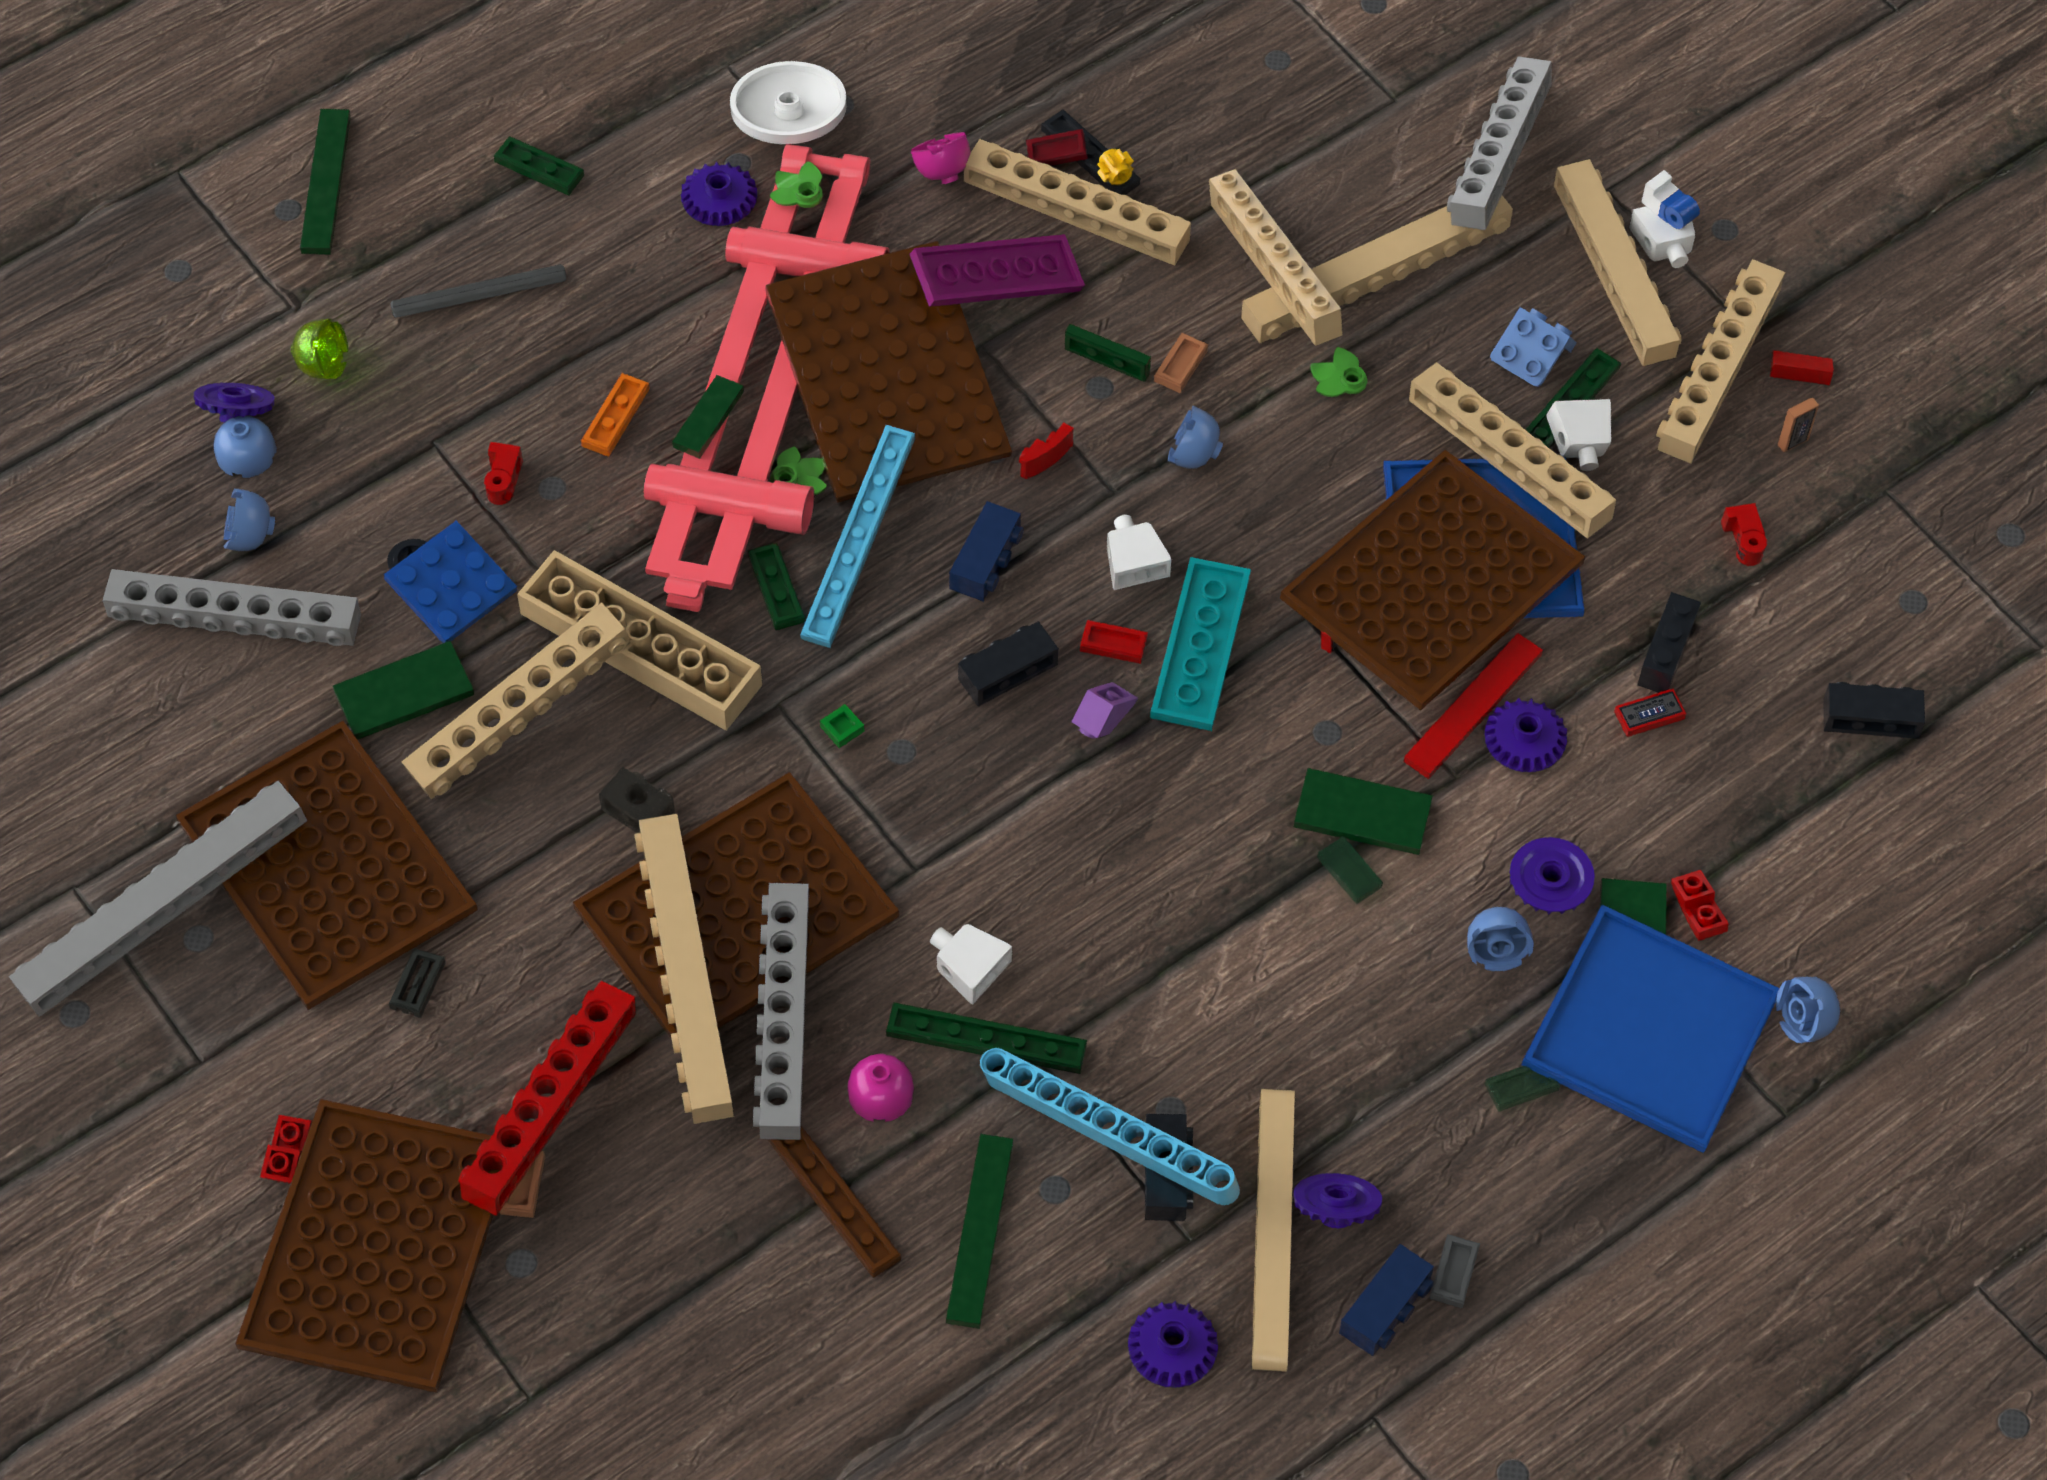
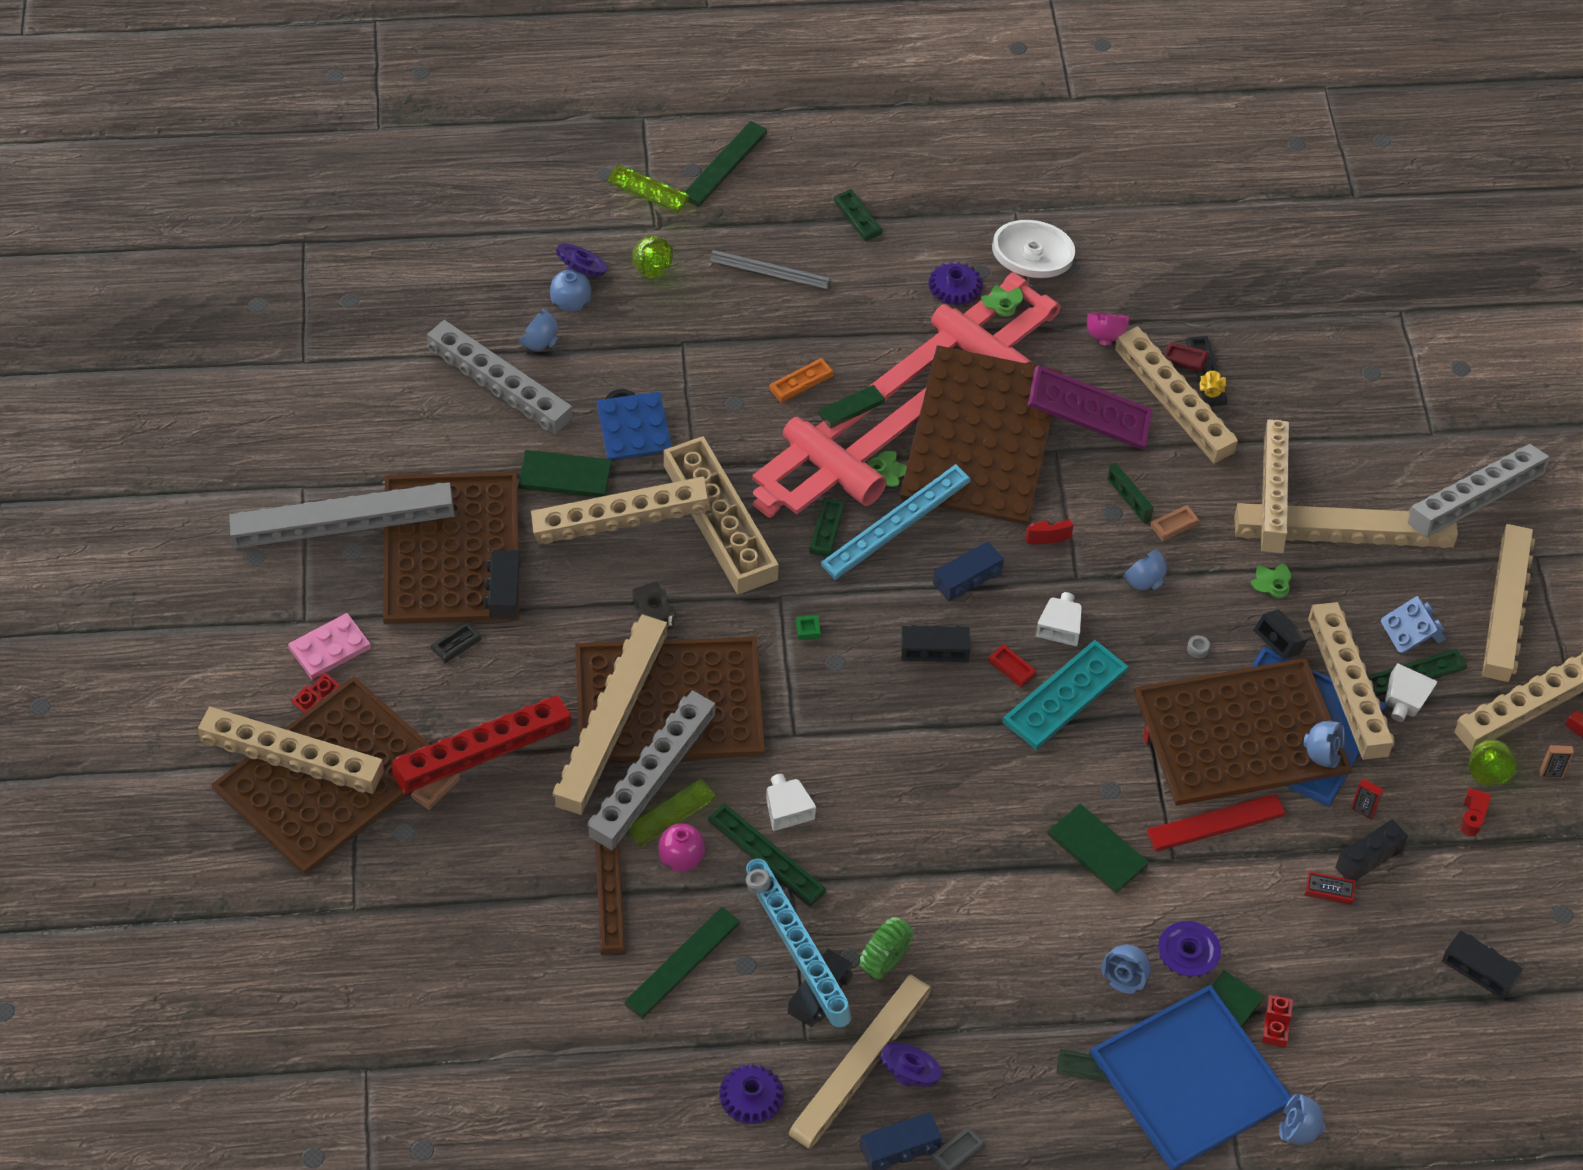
camera: 30 degrees right, 5 degrees down
(251, 262) = (648, 188): none -> clear neon green plate
(257, 1077) = (329, 646): none -> bright pink plate
(294, 1234) = (282, 741): none -> tan brick
(433, 875) = (502, 584): none -> black brick
(505, 470) = (710, 380): red leg -> none
(836, 1050) = (671, 812): none -> clear neon green plate
(1011, 1077) = (758, 881): none -> light grey tile
(1103, 709) = (975, 700): medium lavender slope -> none
(1214, 1073) = (886, 948): none -> bright green gear
(1310, 501) = (1198, 646): none -> light grey tile
(1350, 870) = (1064, 878): clear green tile -> none
(1396, 435) = (1281, 634): none -> black brick
(1522, 749) = (1237, 869): dark purple gear -> none
(1541, 542) = (1324, 743): none -> medium blue cylinder
(1626, 583) = (1367, 798): none -> tile
(1660, 238) = (1555, 599): white torso -> none
(1669, 201) = (1565, 579): leg -> none
(1728, 463) = (1492, 762): none -> clear neon green cylinder

